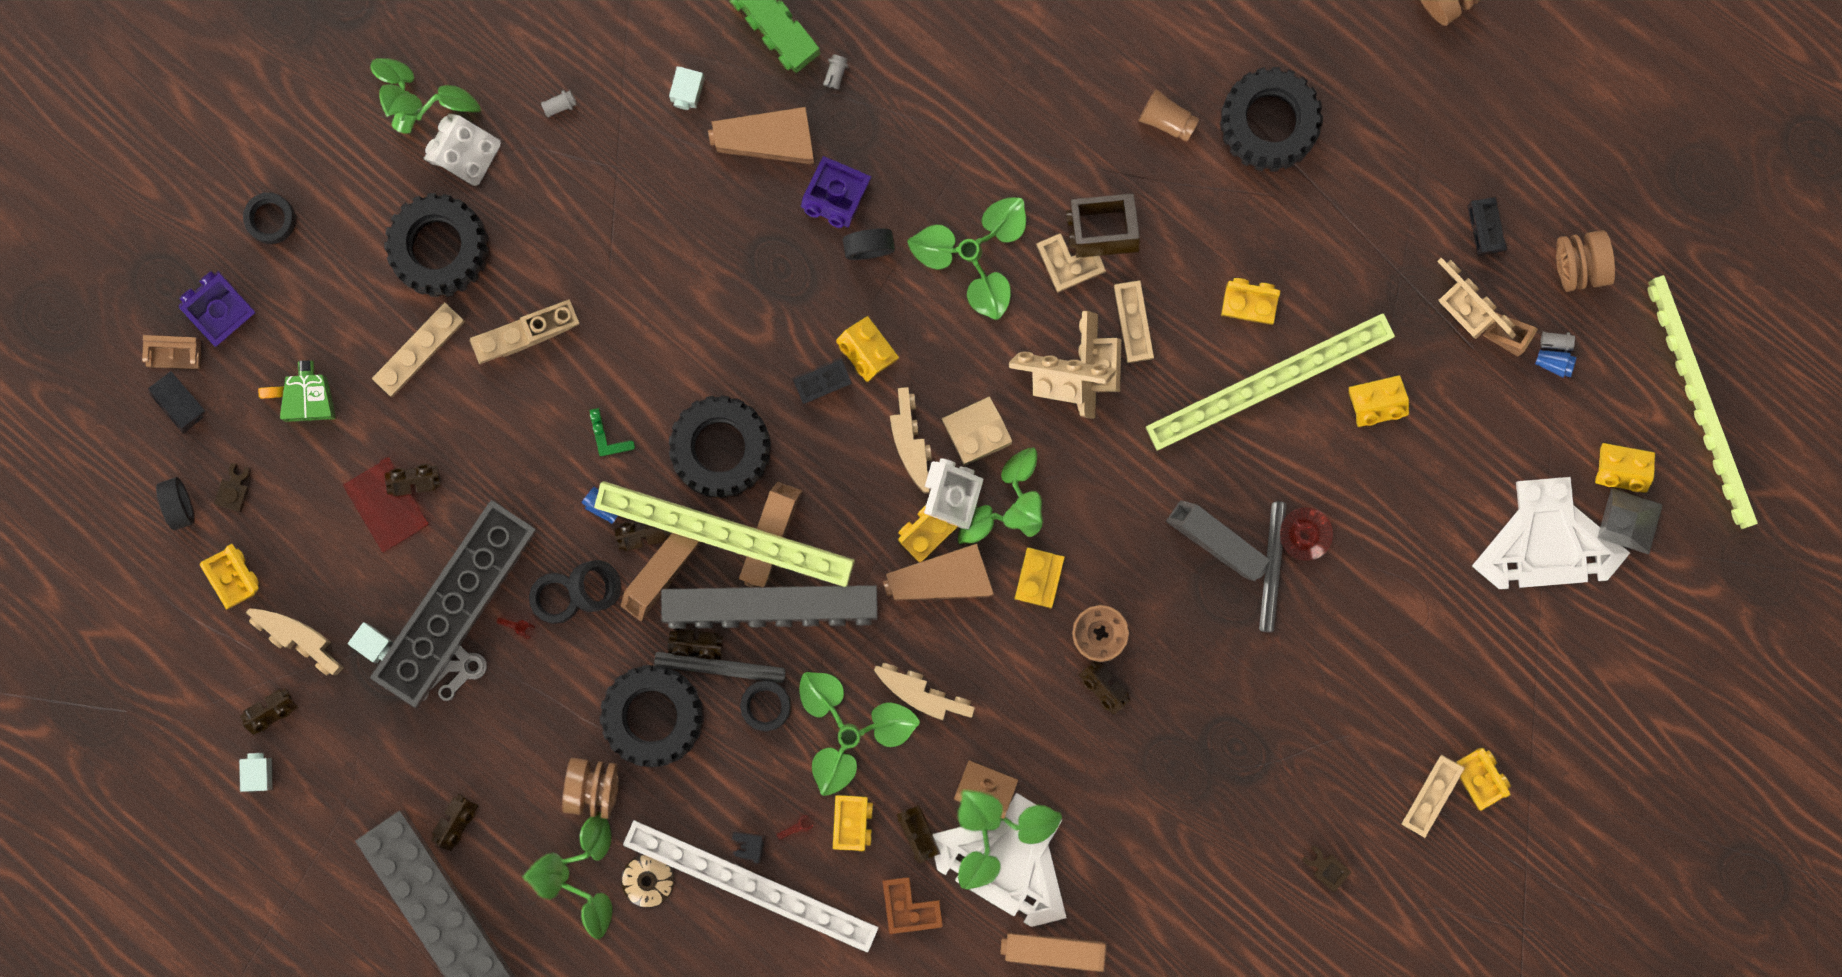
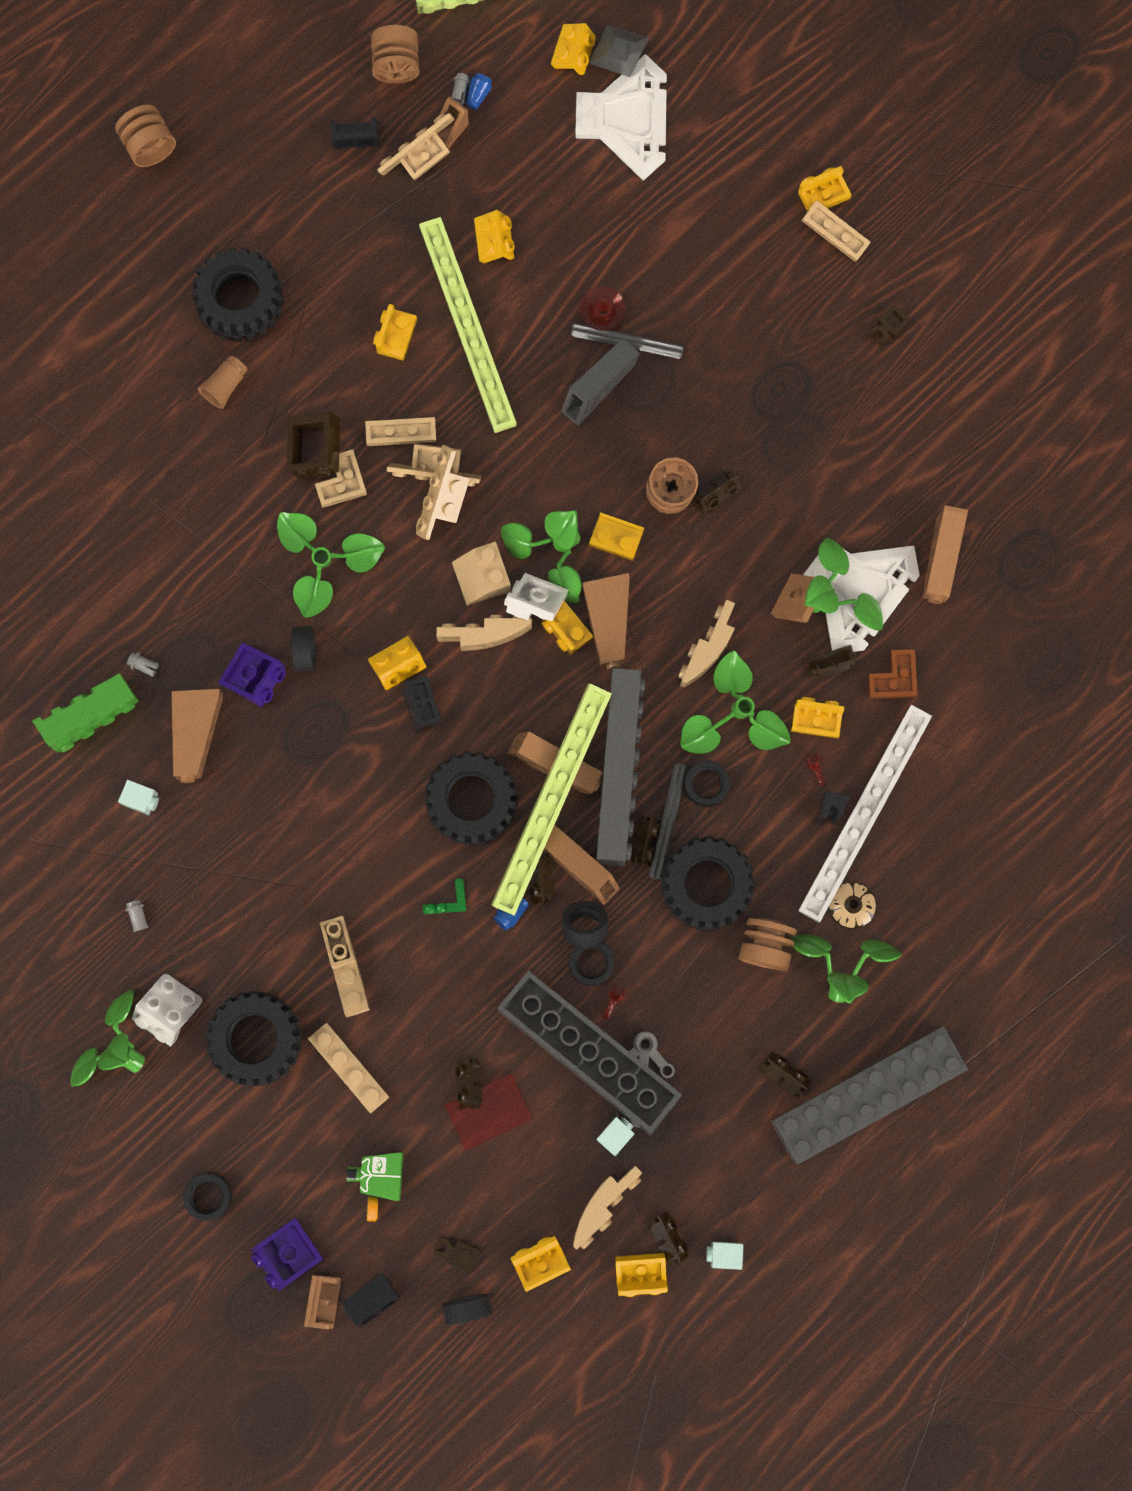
camera: 90 degrees left, 5 degrees down
(227, 685) = (641, 1274): none -> yellow bracket

